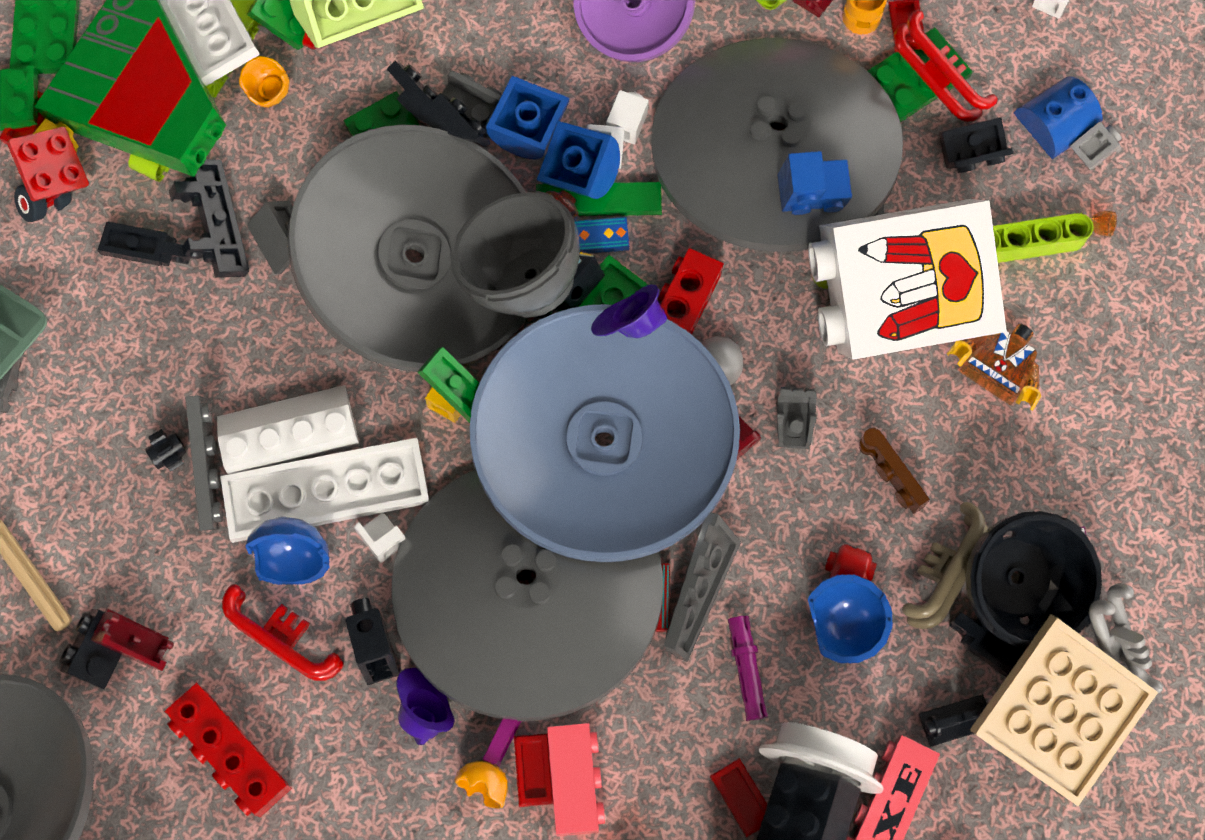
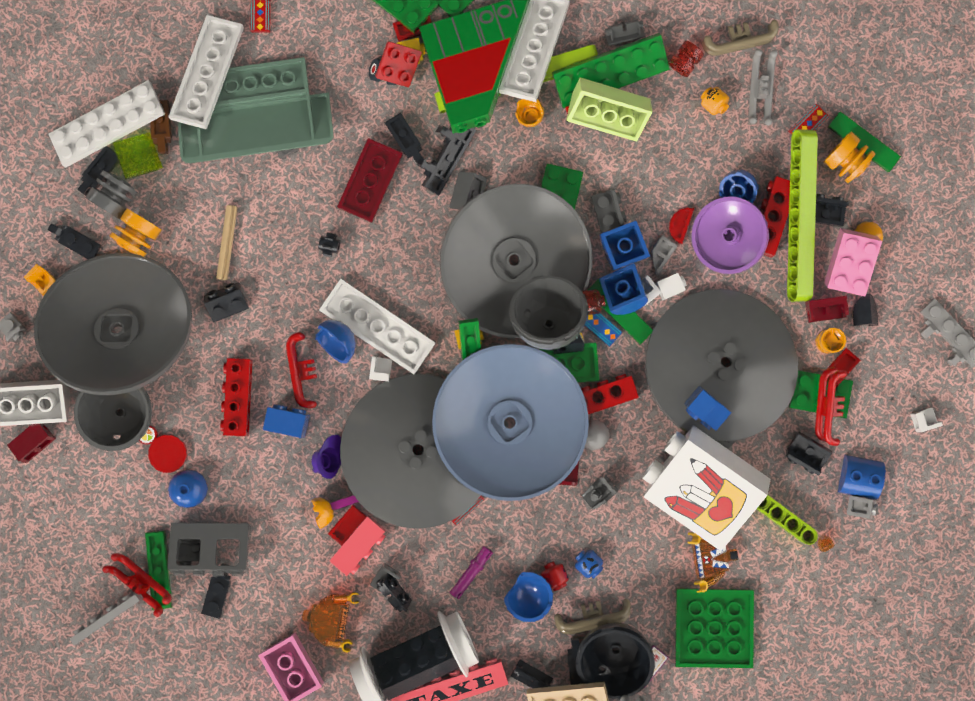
camera: 45 degrees right, 15 degrees up
(132, 640) = (241, 315): dark red hinge -> none
(145, 332) = (370, 180): none -> dark red plate
(202, 452) = (342, 262): dark grey wing -> none
(287, 431) = (387, 284): white slope -> none
(322, 712) = (286, 422): none -> blue brick
(371, 642) = (330, 418): black torso -> none
(436, 109) = (588, 206): black slope -> none
(565, 46) = (679, 224): none -> red tile
(580, 93) = (661, 253): none -> light grey tile
(632, 316) = (570, 386): dark purple piece -> none
(650, 786) = (382, 573): none -> dark grey bracket
(666, 787) = (399, 598): none -> black hinge
(702, 583) = (491, 520): dark grey wing -> none
(740, 796) = (416, 618): red tile -> none
(874, 512) = (589, 563): none -> blue head
(892, 469) = (615, 554): reddish brown plate -> none
(1095, 439) = (714, 628): none -> green plate

